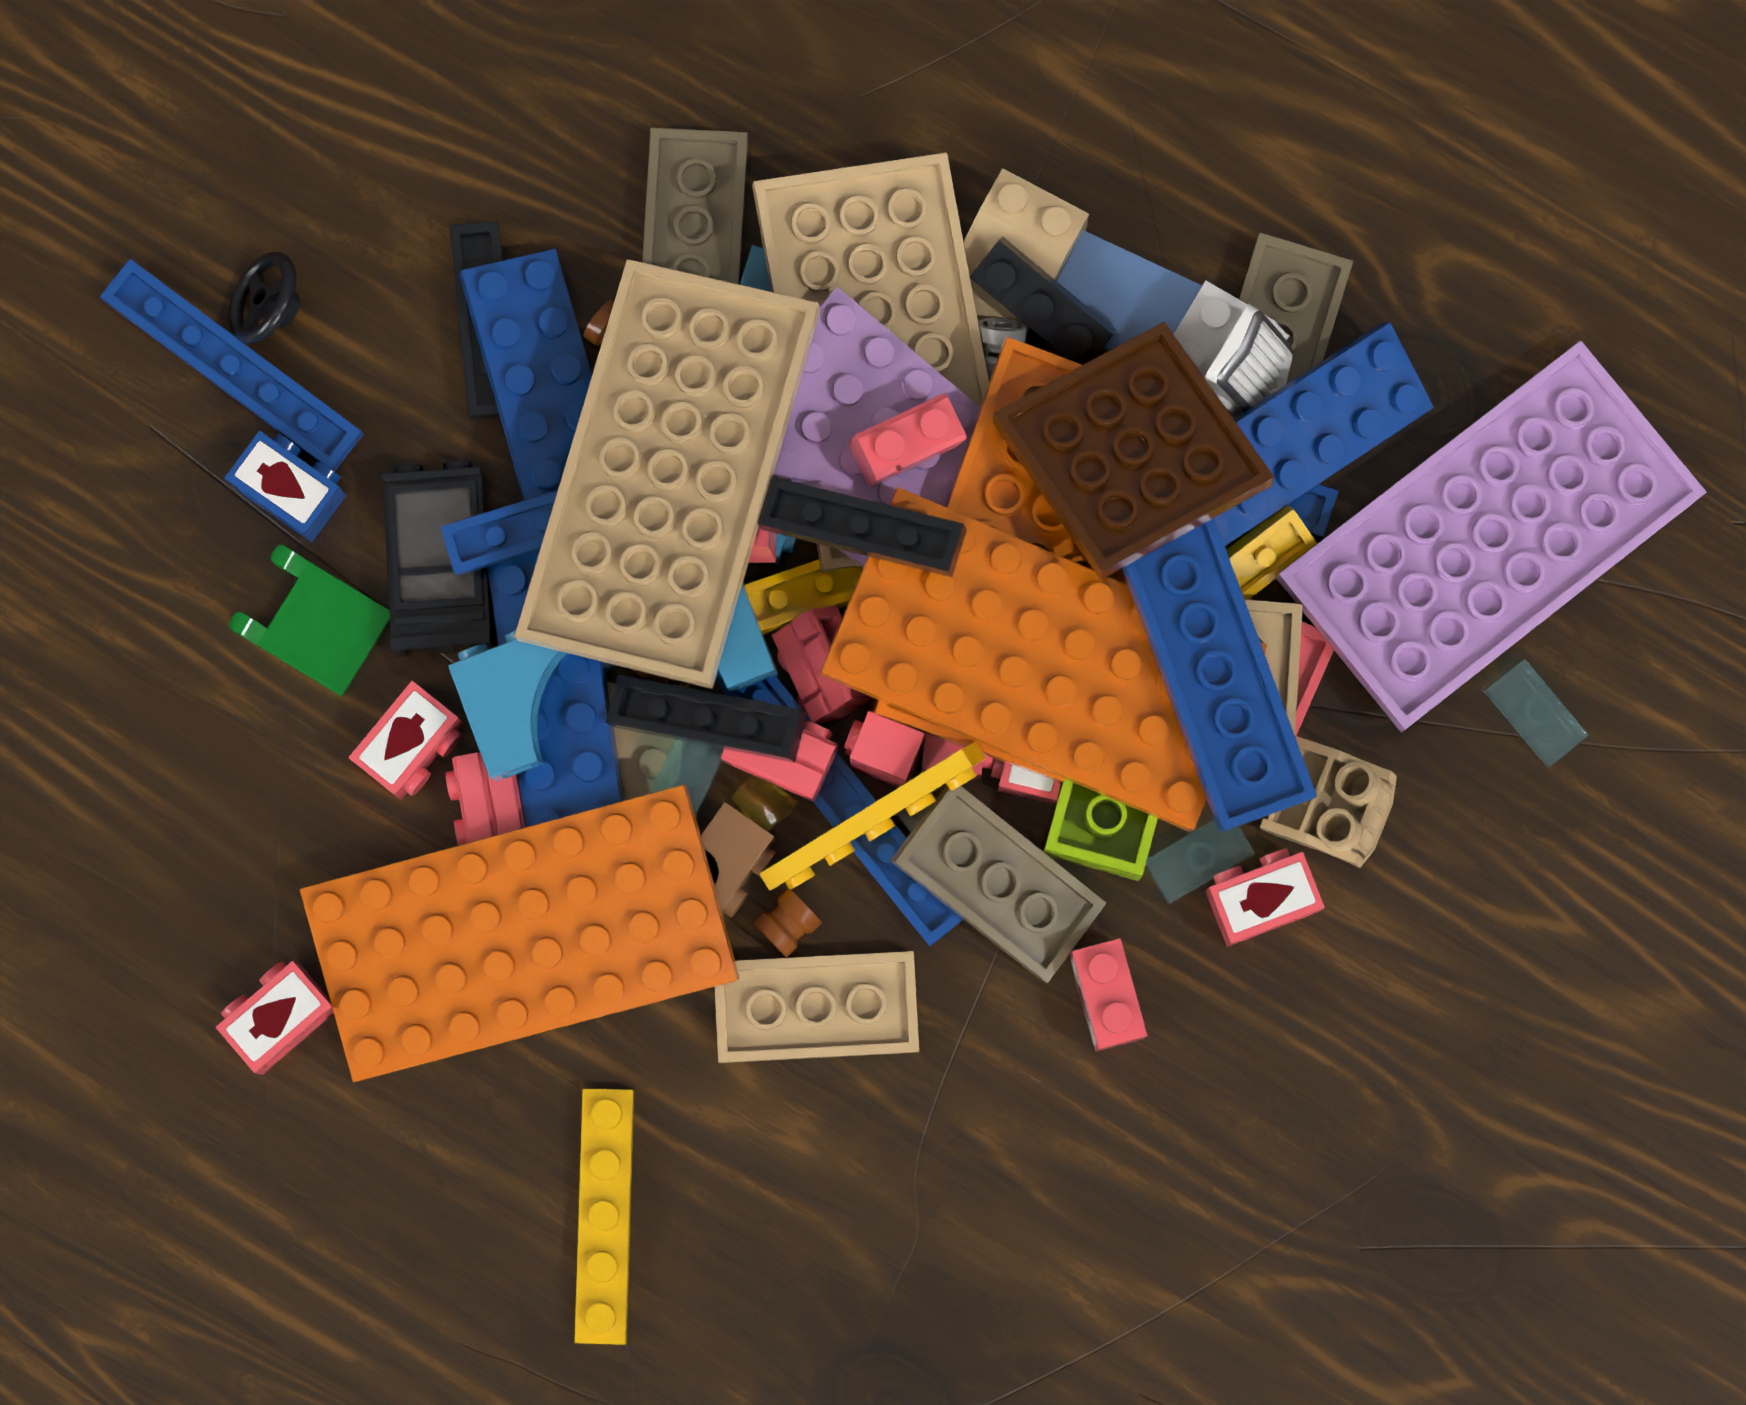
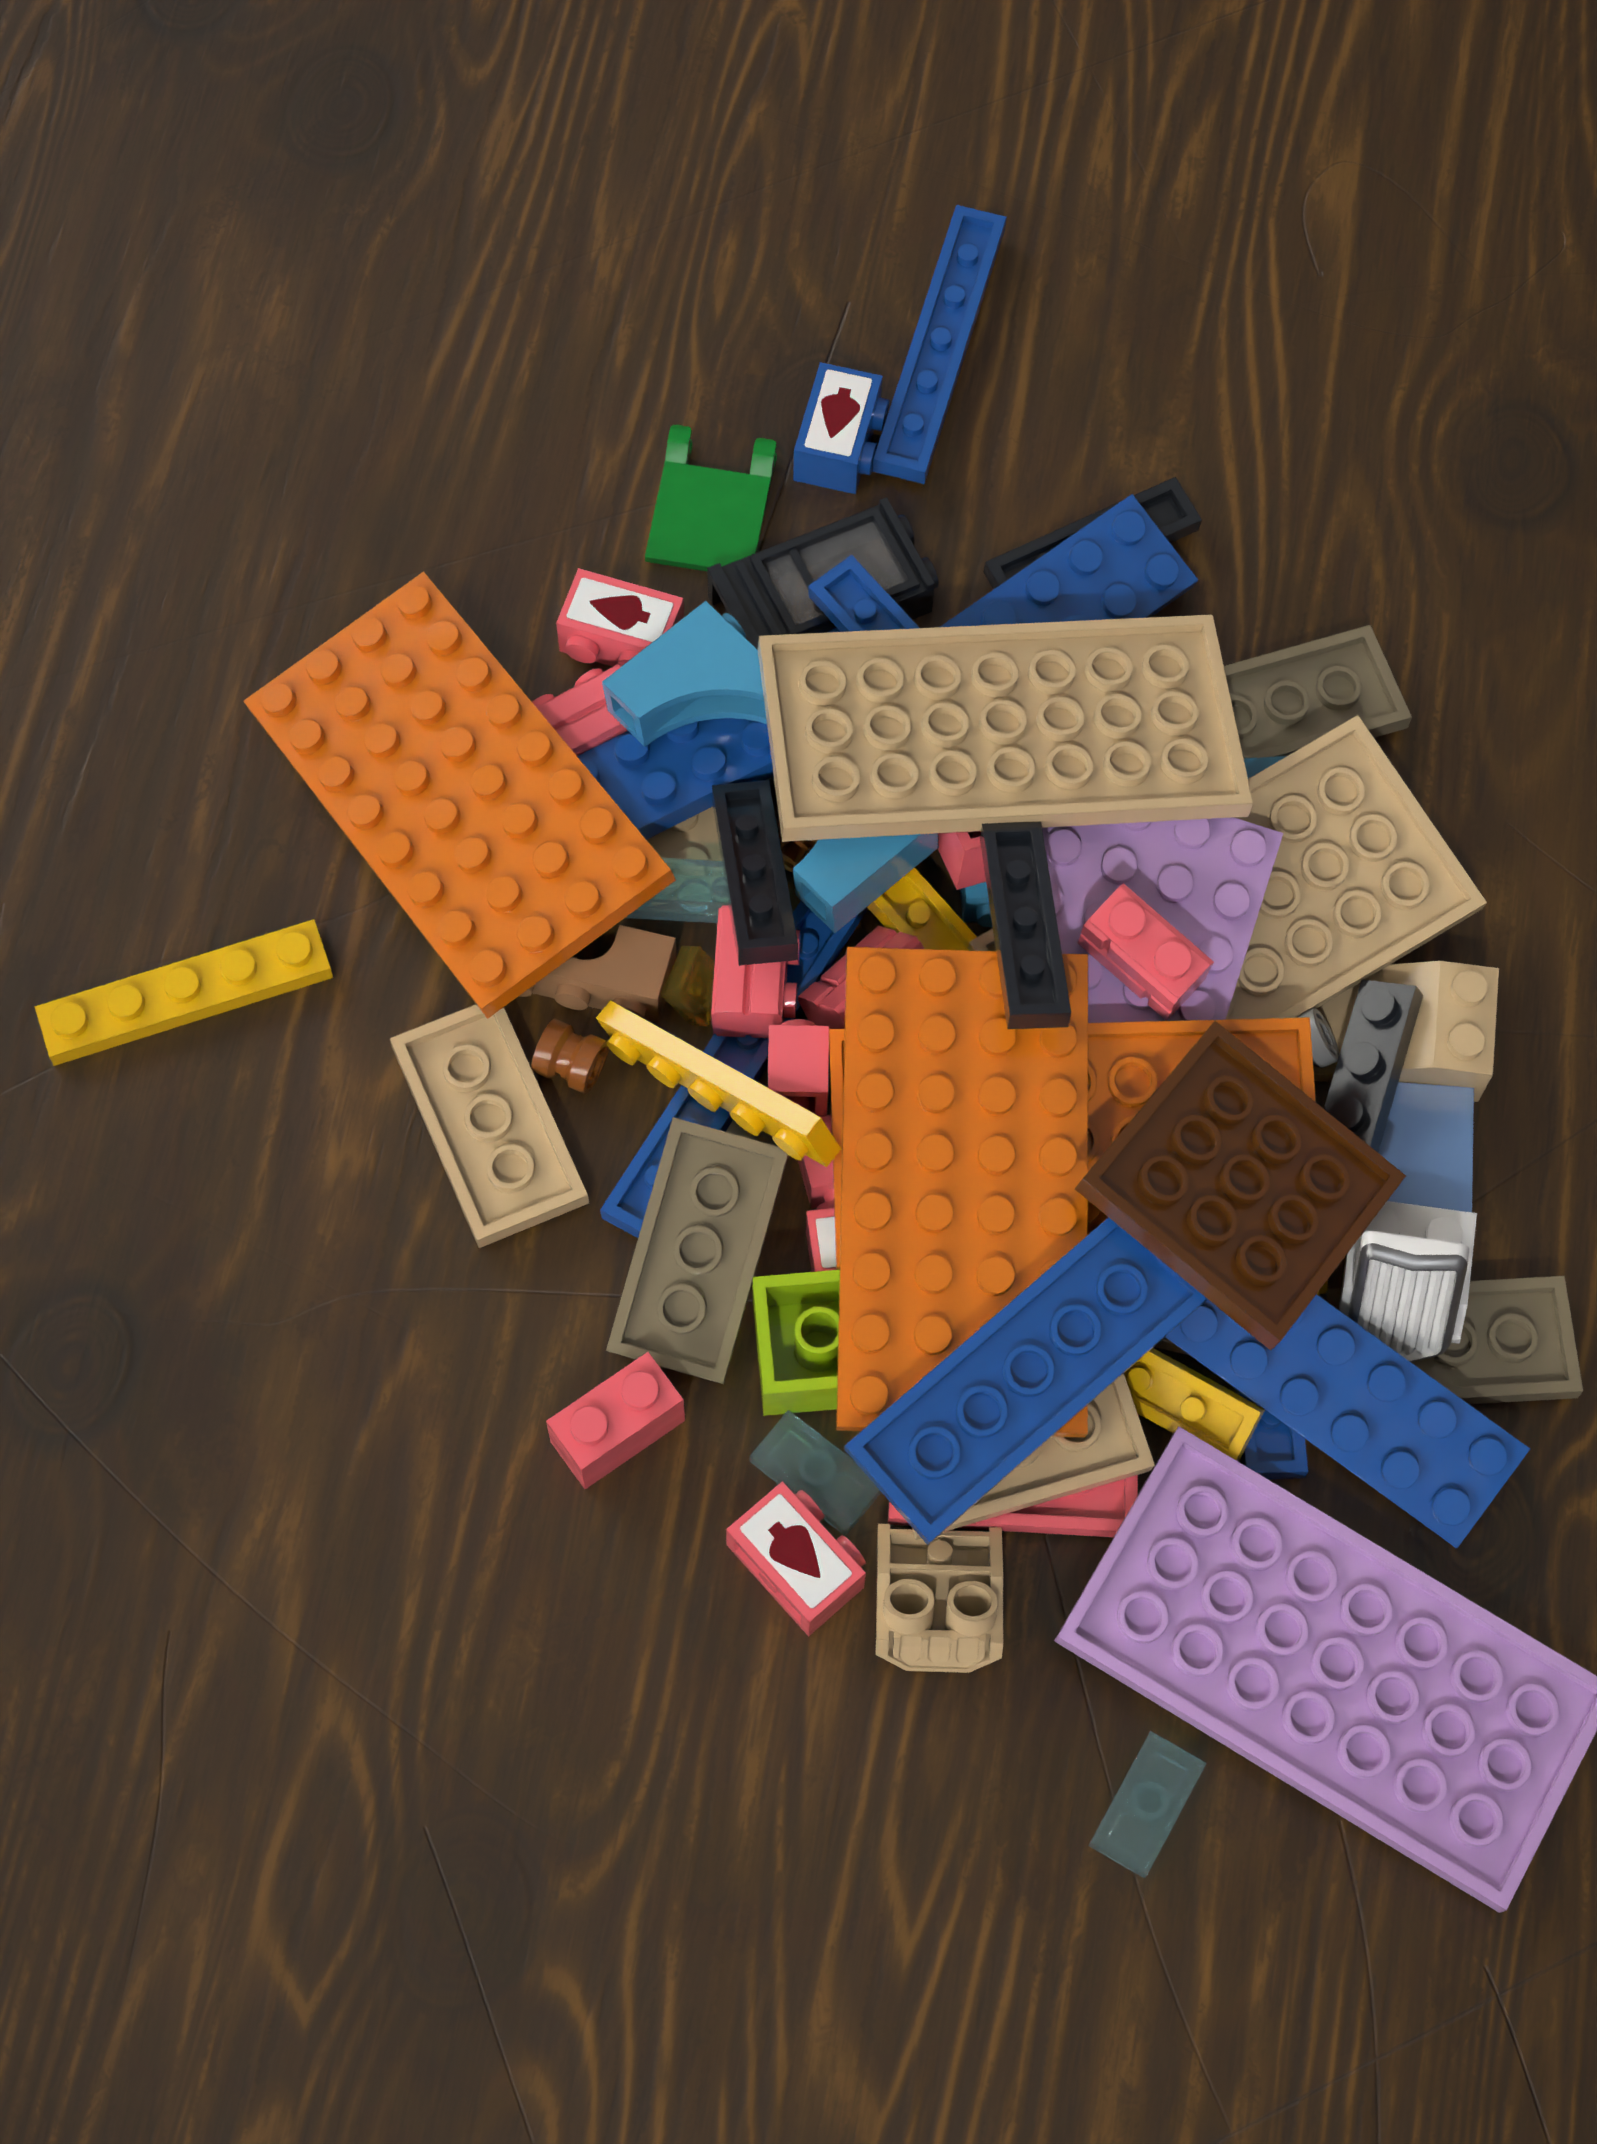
camera: 65 degrees right, 15 degrees down
(273, 303) = (1020, 344): black piece -> none
(275, 1016) = (283, 603): brick -> none

